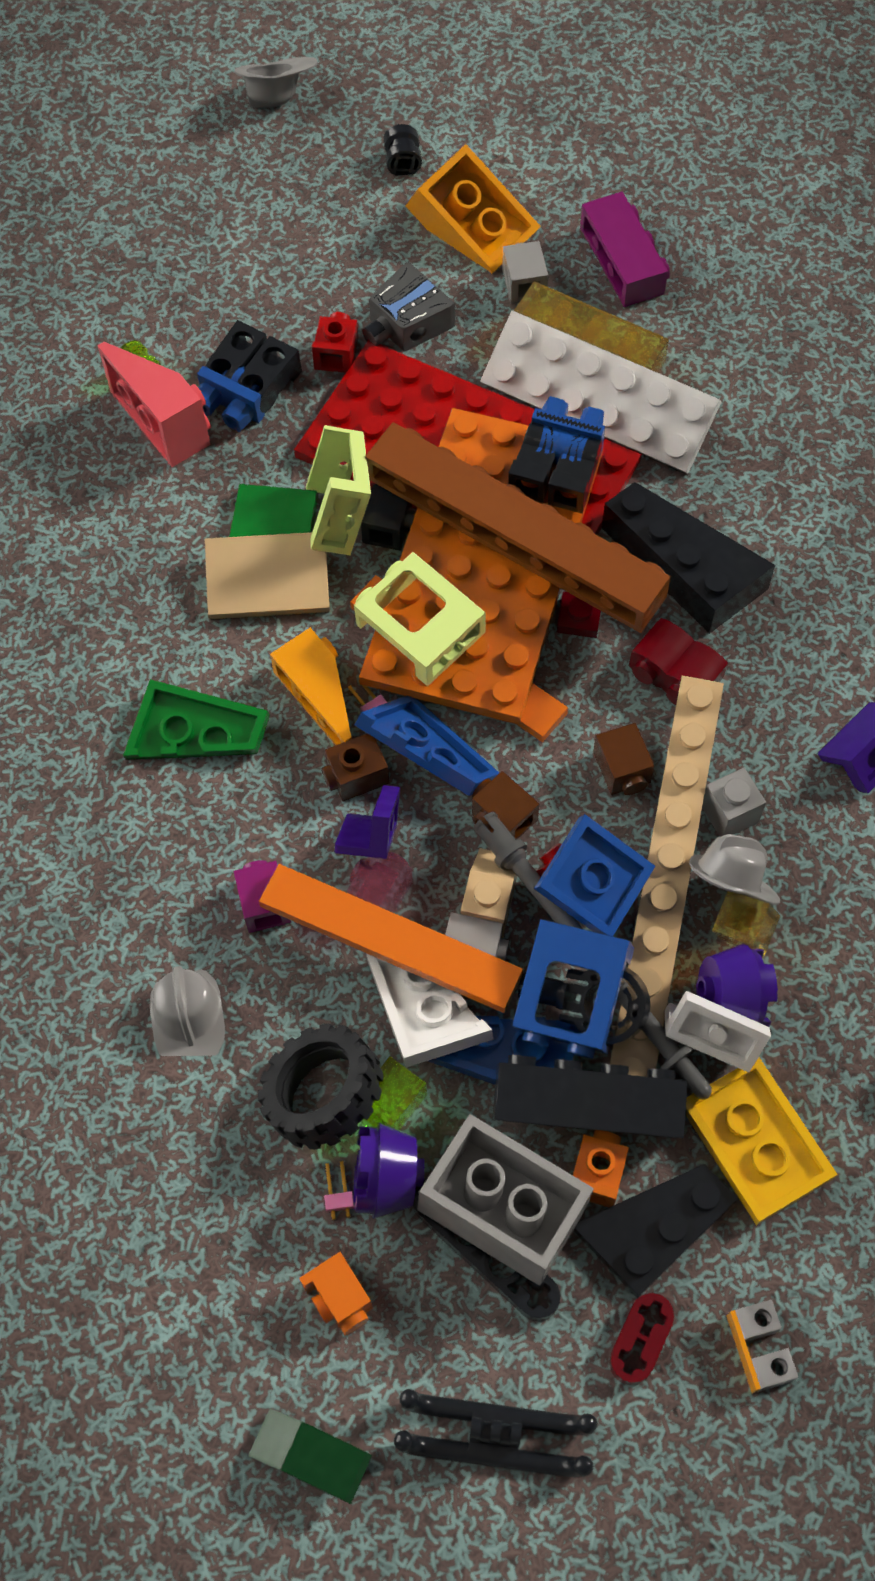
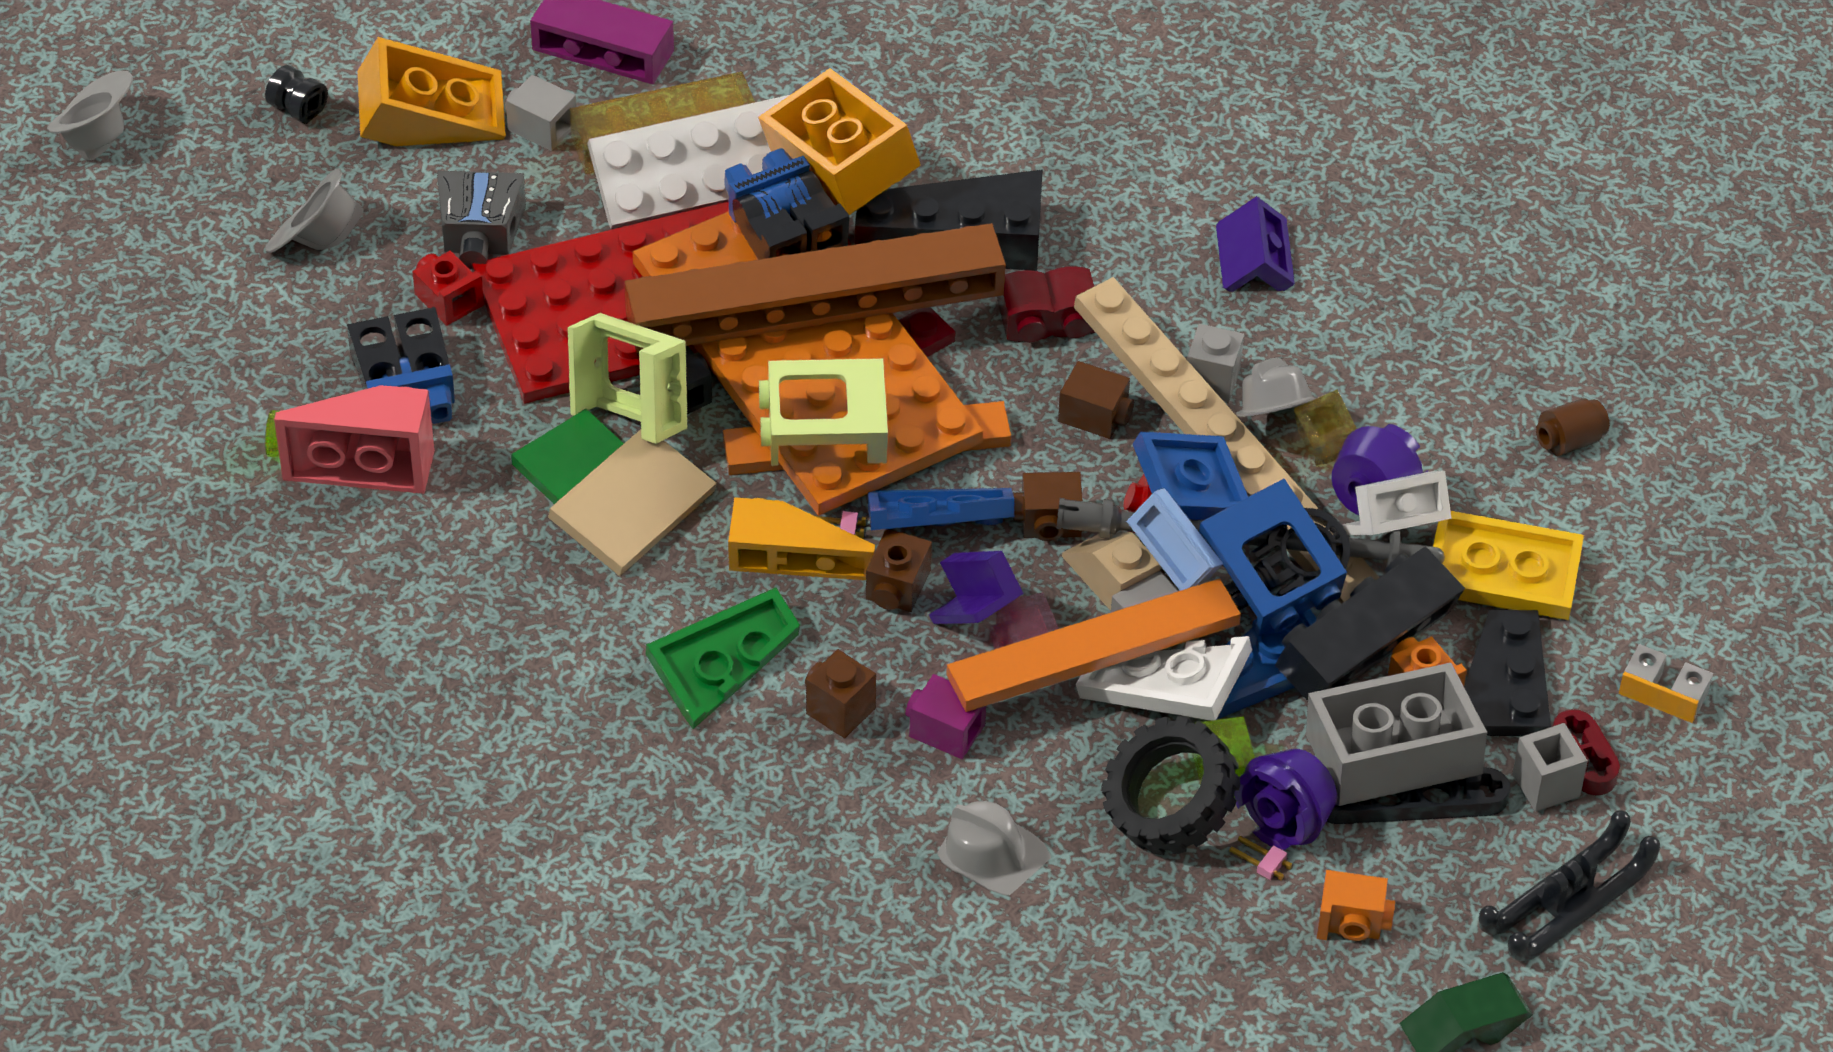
camera: 50 degrees left, 15 degrees down
(217, 818) = (840, 693): none -> reddish brown brick
(320, 244) = (322, 219): none -> light grey piece
(519, 914) = (1174, 541): none -> light blue tile
(587, 1330) = (1549, 767): none -> light grey brick
(647, 435) = (844, 137): none -> light orange brick

